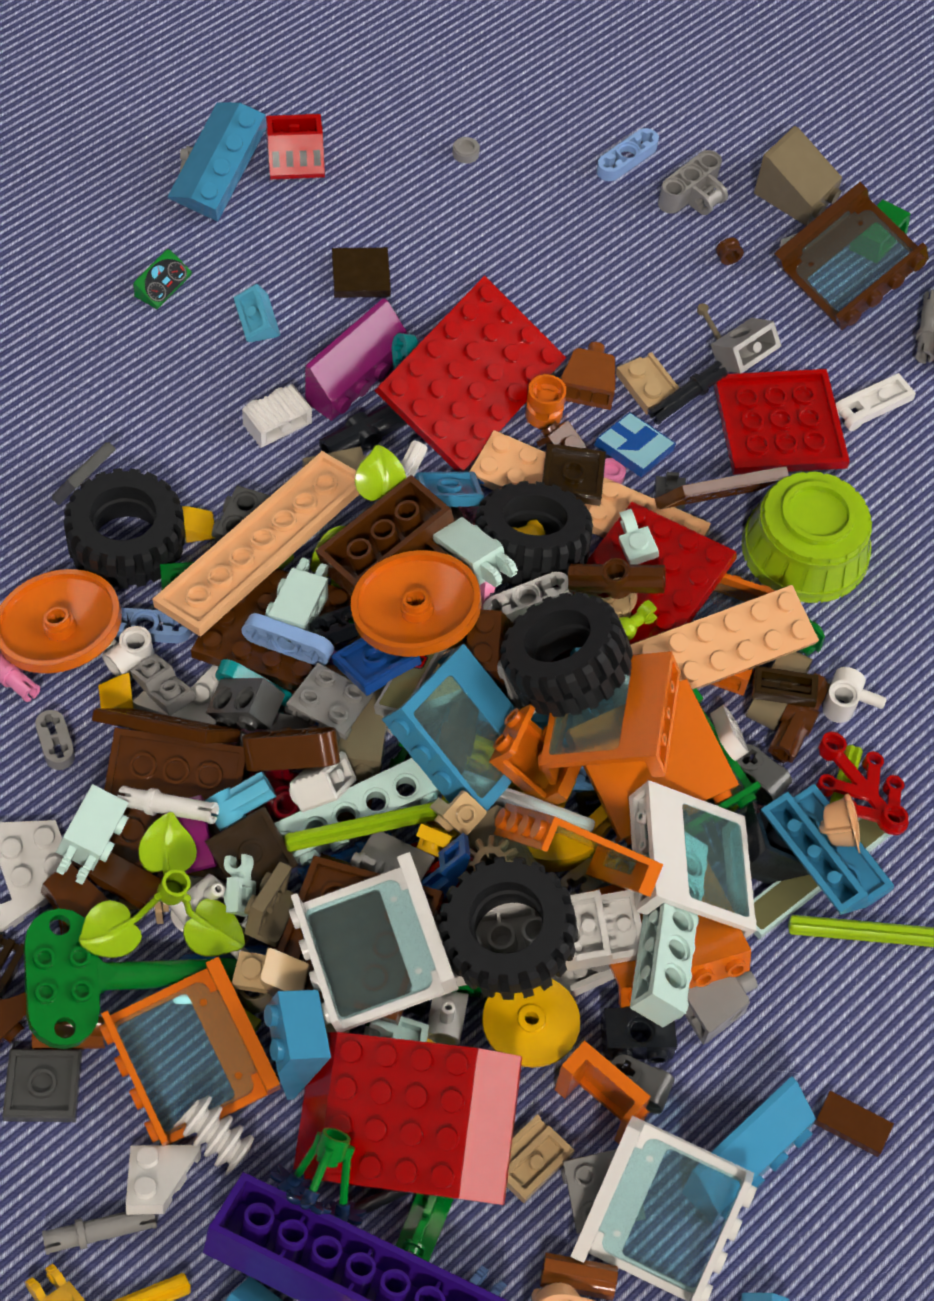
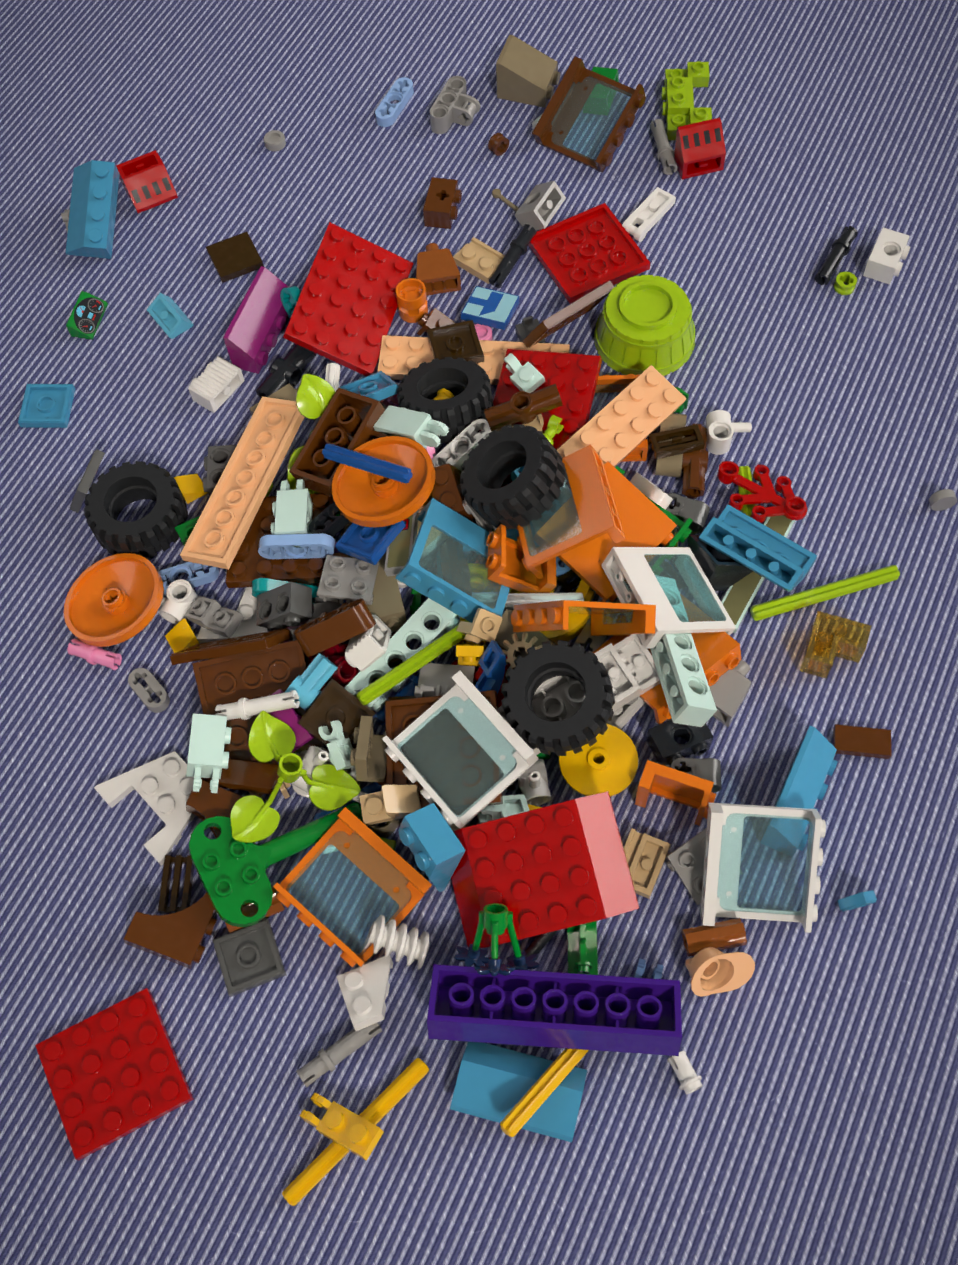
camera: 10 degrees left, 5 degrees up
(73, 367) = (46, 406): none -> dark azure tile
(406, 575) = (367, 463): none -> blue axle
(631, 297) = (441, 203): none -> reddish brown brick
(841, 823) = (763, 526): light nougat piece -> none
(871, 988) = (830, 638): none -> clear yellow brick

